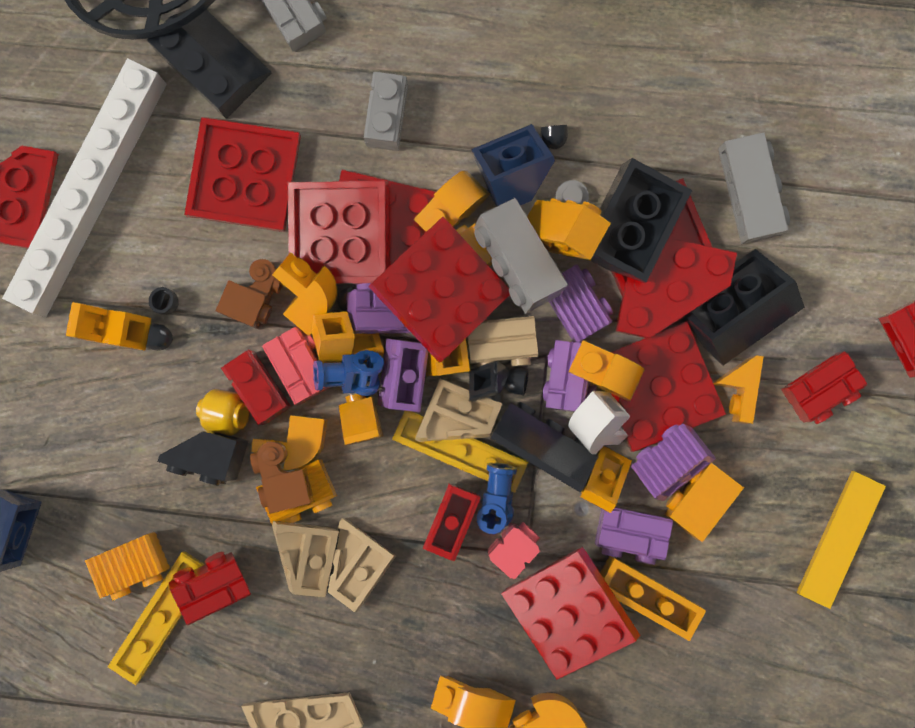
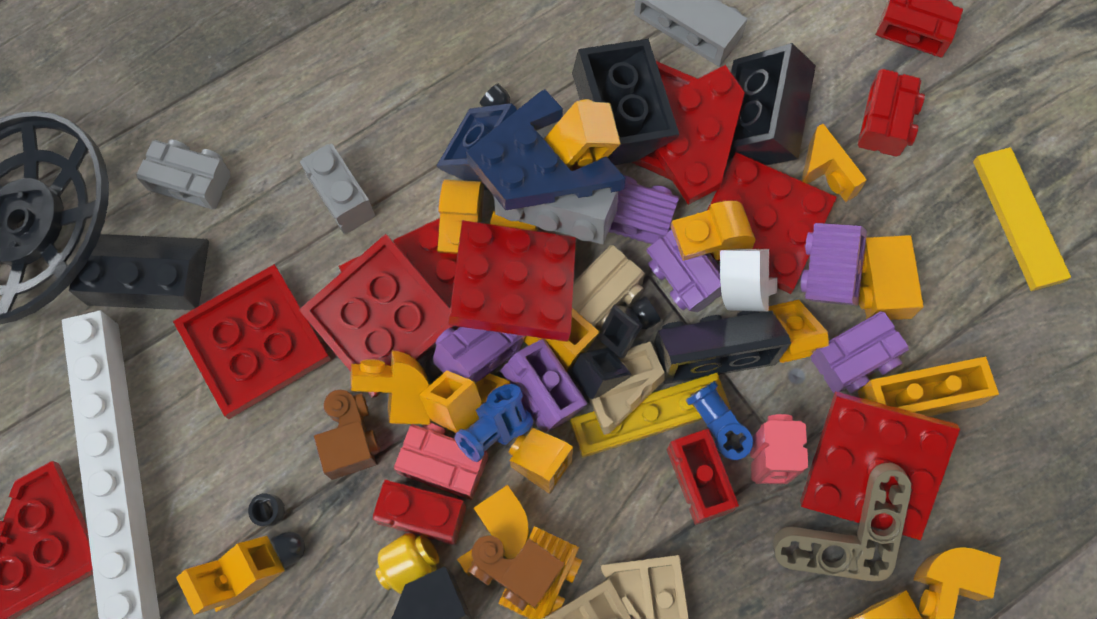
camera: 45 degrees left, 15 degrees down
(448, 396) = (599, 372): none -> black slope
(509, 649) = (858, 547): none -> dark tan beam
(515, 213) = (525, 169): none -> dark blue wing

